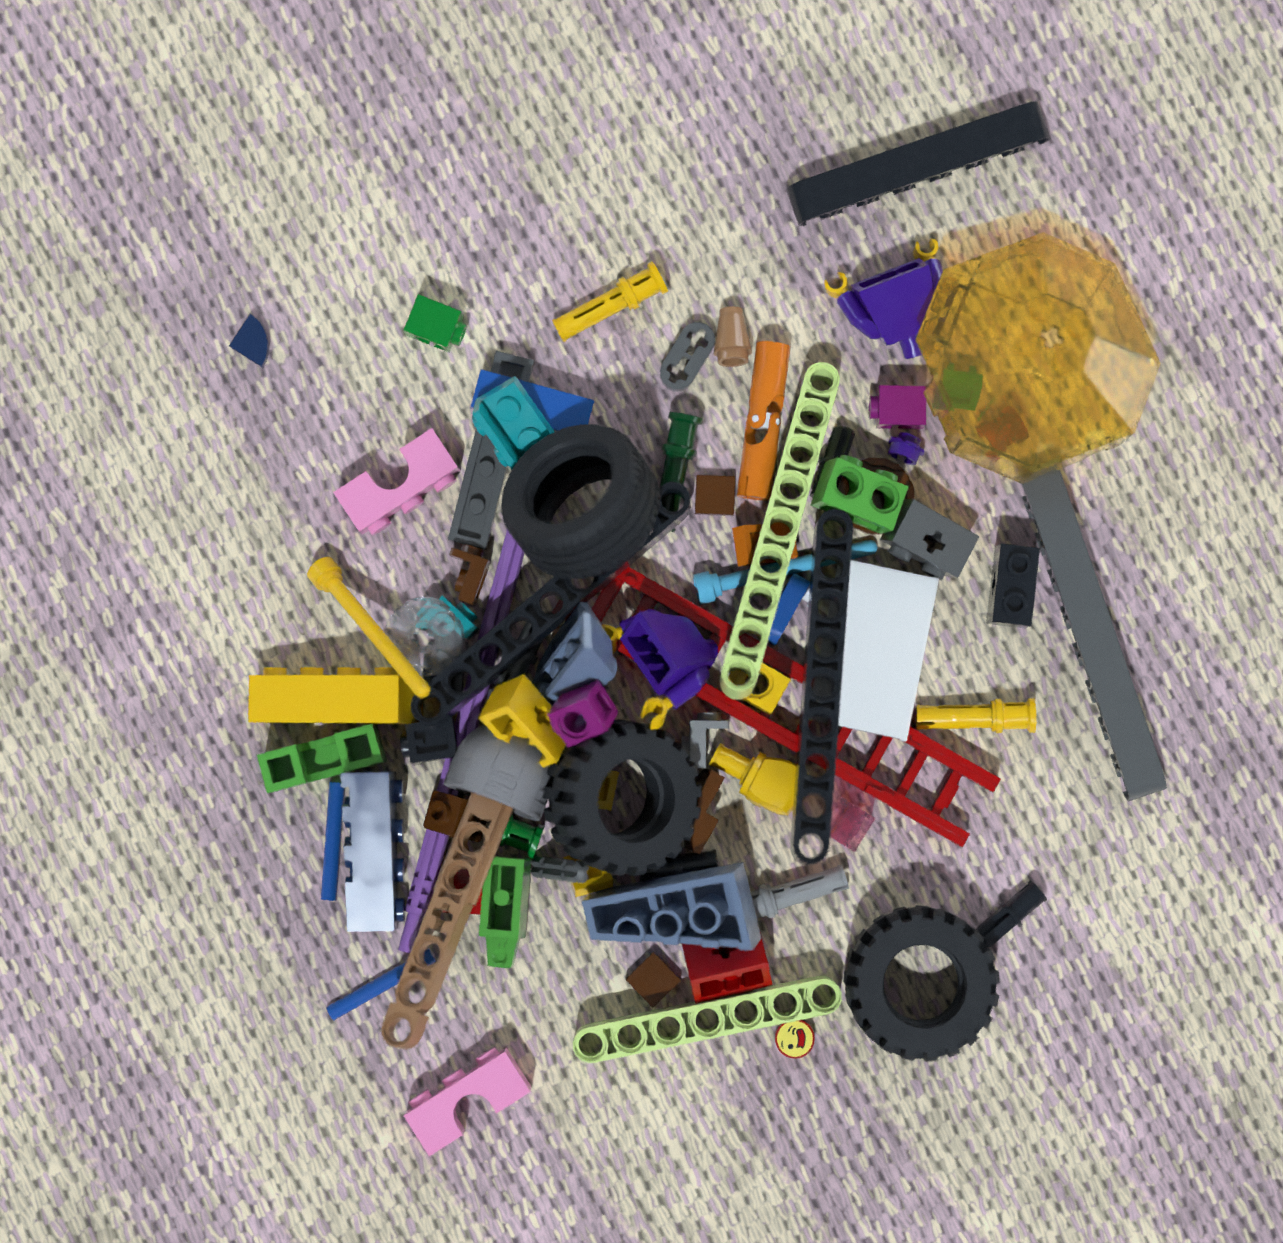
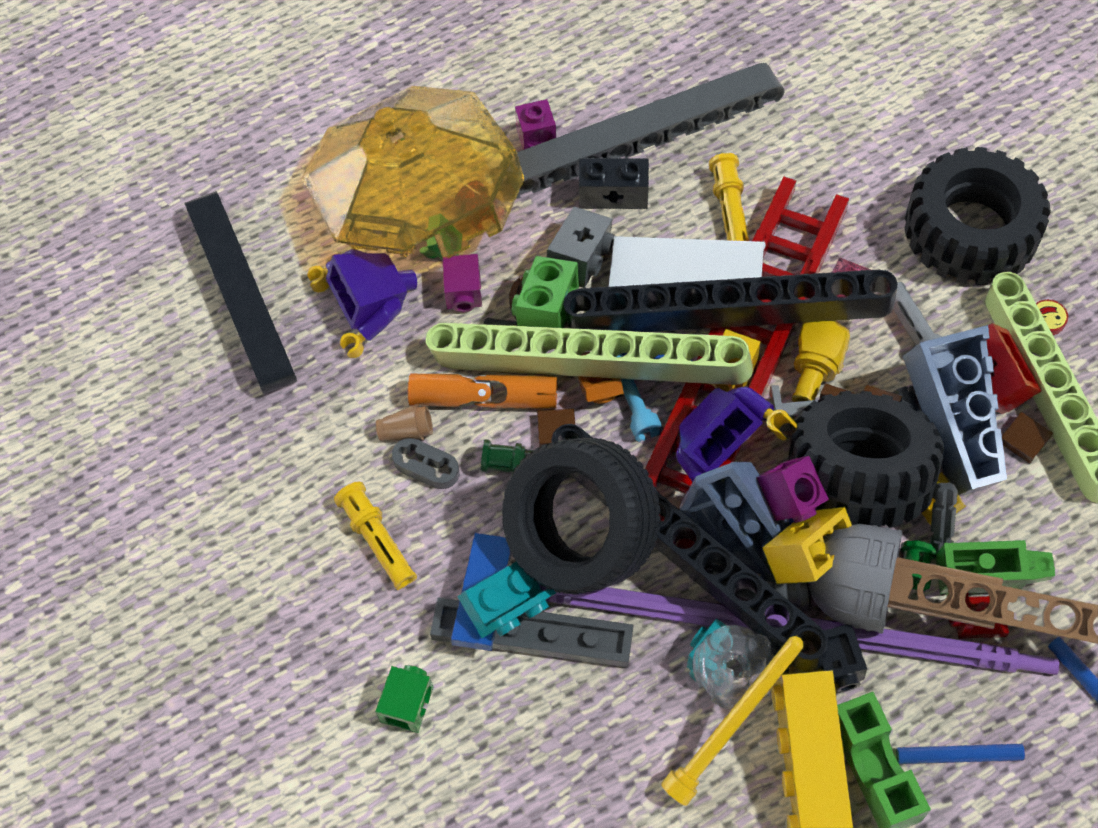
camera: 90 degrees left, 25 degrees down
(372, 851) = (964, 703): wedge -> none
(428, 469) = (555, 690): bright pink arch -> none
(445, 814) = (910, 632): reddish brown bracket -> none
(470, 581) = (668, 635): reddish brown bracket -> none
(907, 446) = (496, 277): dark purple plate -> none
(1011, 913) = (892, 163): black axle -> none
(1103, 504) = (535, 123): none -> magenta brick

